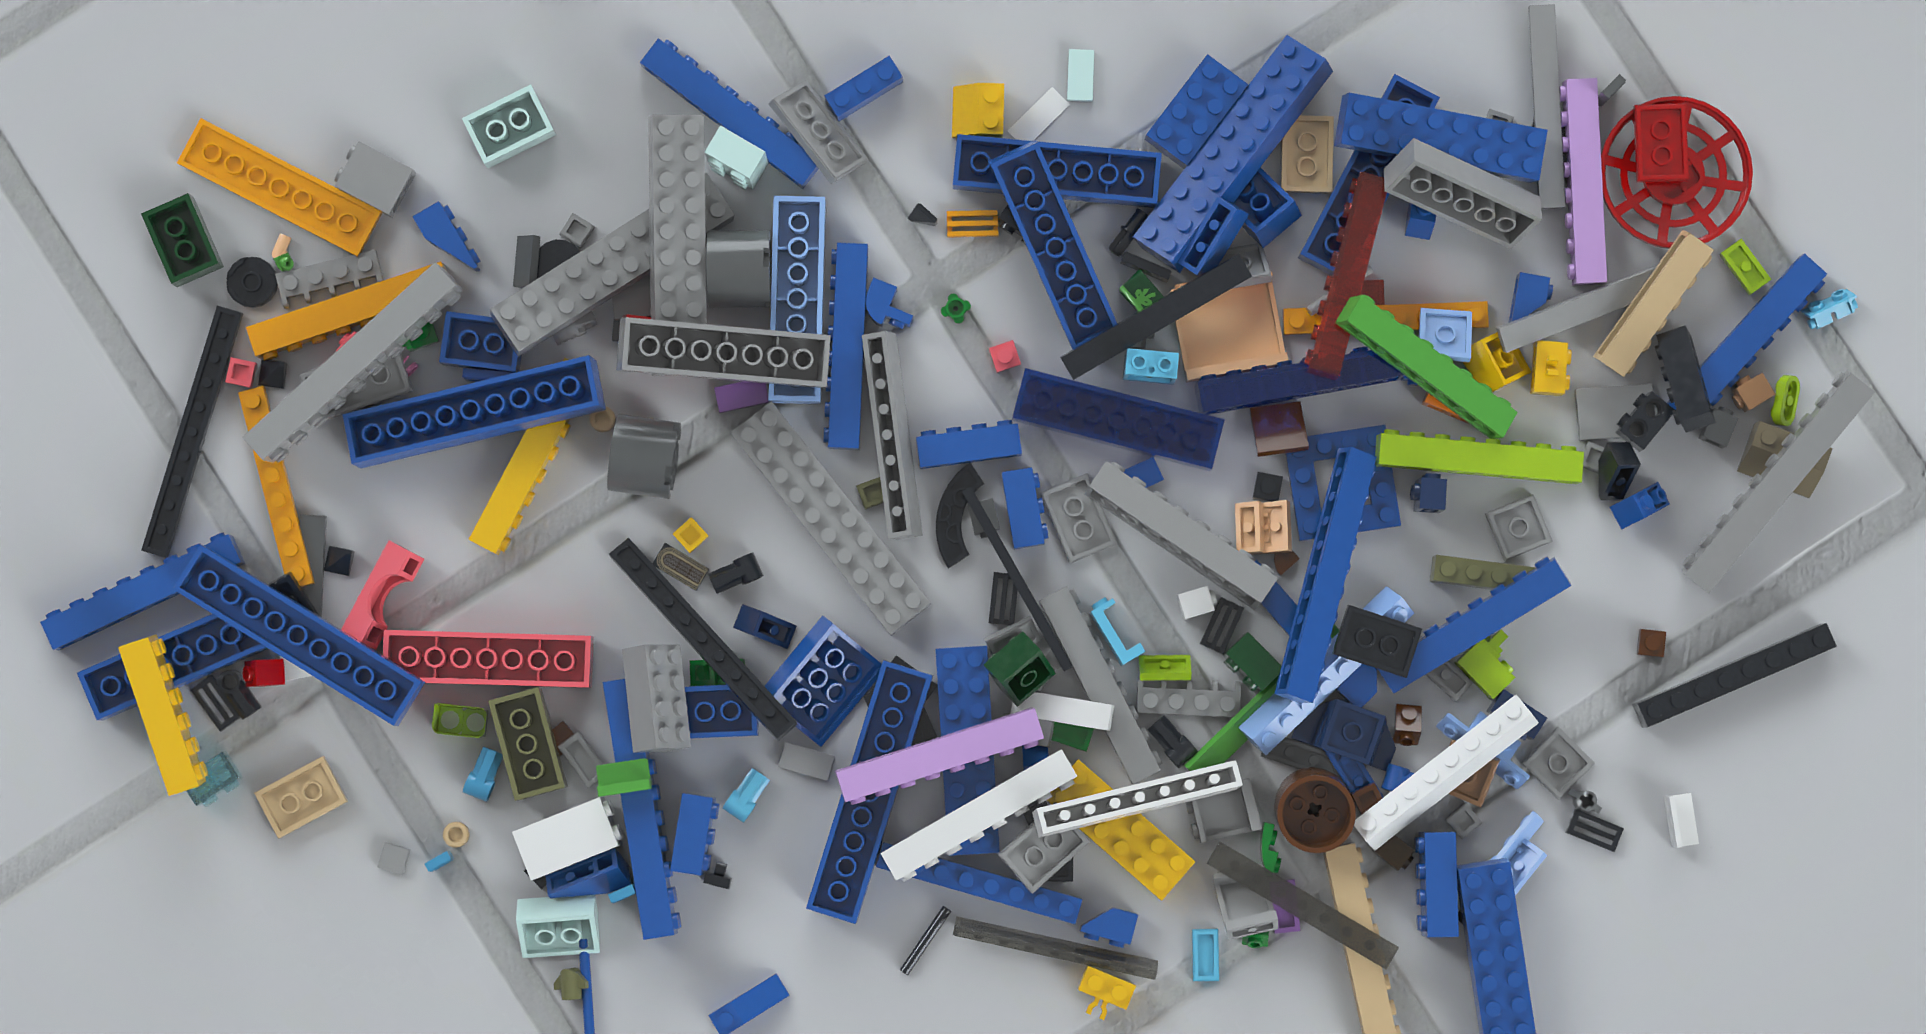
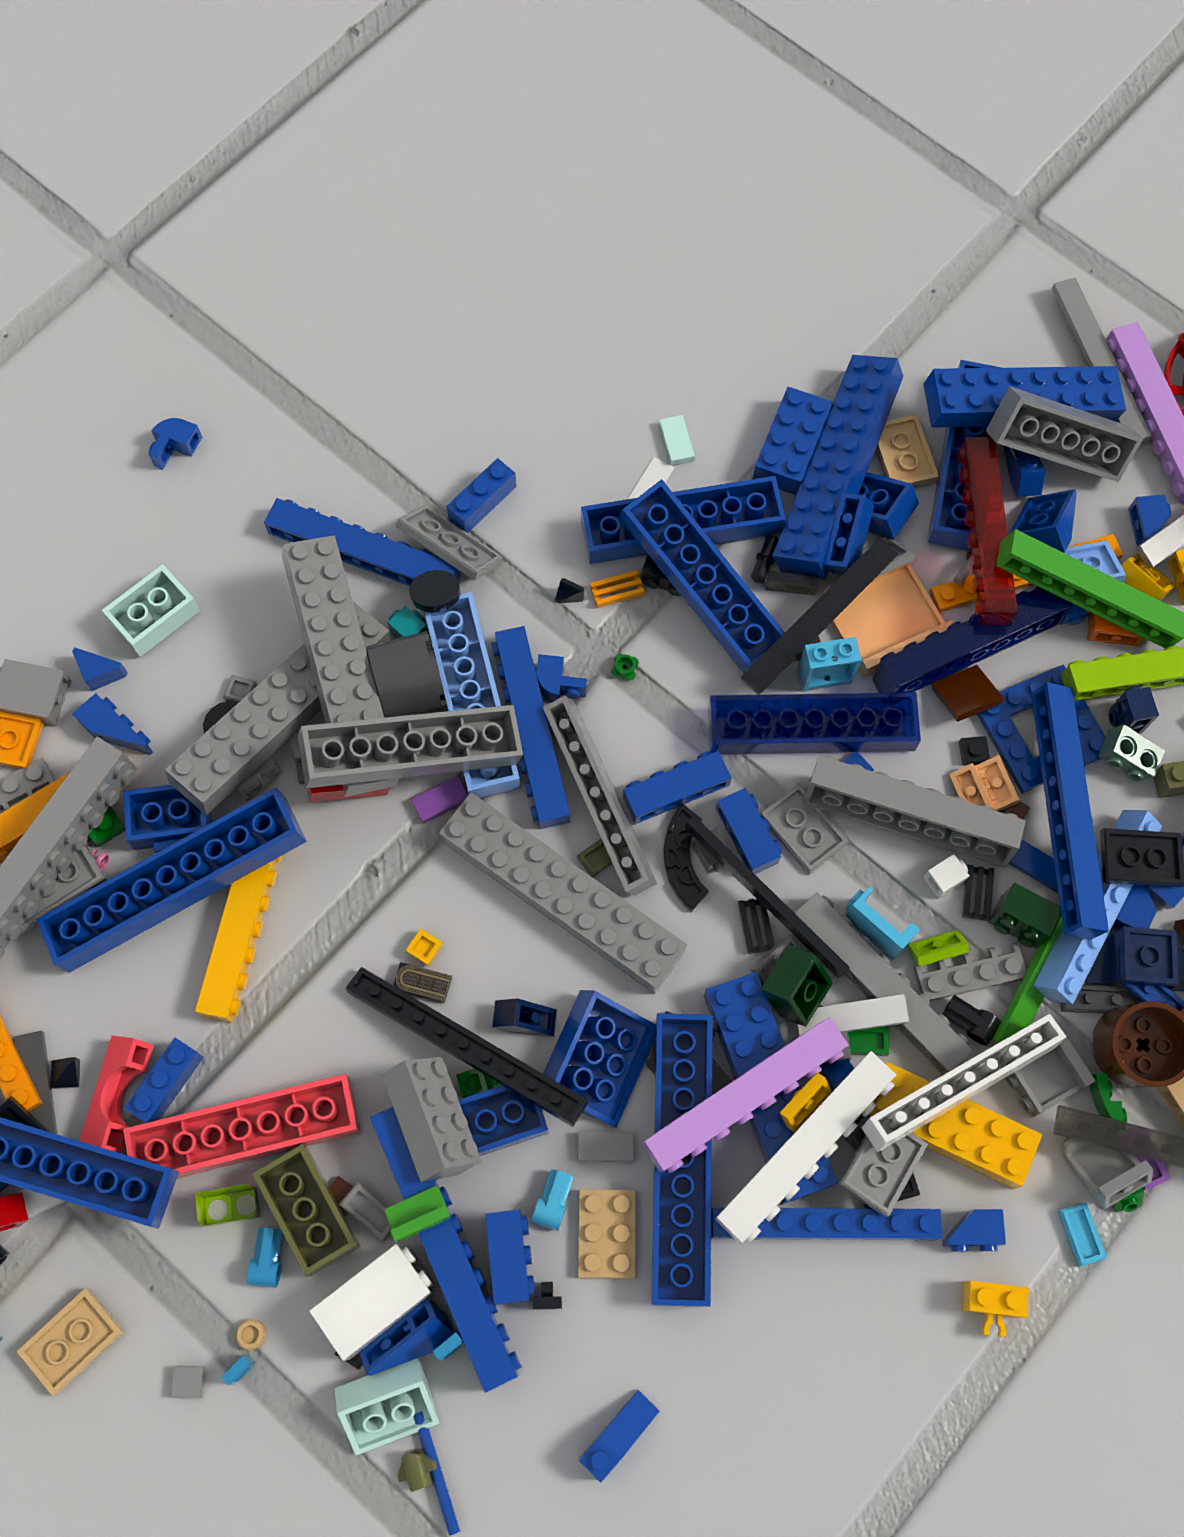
camera: 15 degrees left, 15 degrees down
(427, 595) = (164, 1081): none -> blue brick
(443, 173) = (98, 670): none -> blue slope
(526, 260) = (195, 722): dark grey tile -> none
(603, 420) = (307, 859): tan tile -> none
(643, 456) = (356, 877): dark grey brick -> none
(736, 158) = (377, 577): light aqua brick -> none
(741, 571) = (485, 969): black piece -> none
(755, 209) = (406, 622): none -> teal brick
(786, 836) = (607, 1233): none -> tan plate
(789, 187) = (434, 591): none -> black tile
(925, 940) = (786, 1305): black bar -> none
(978, 110) = (592, 484): yellow slope -> none
(990, 776) = (805, 1102): none -> yellow plate
(1004, 356) = (684, 698): coral plate -> none
(1055, 948) = (927, 1272): clear smoke tile -> none
(1140, 291) = (793, 603): piece -> none
(1415, 277) = (1049, 518): none -> blue slope
(1416, 530) = (1131, 753): none -> sand green brick
(1610, 90) = (1156, 324): dark grey tile -> none

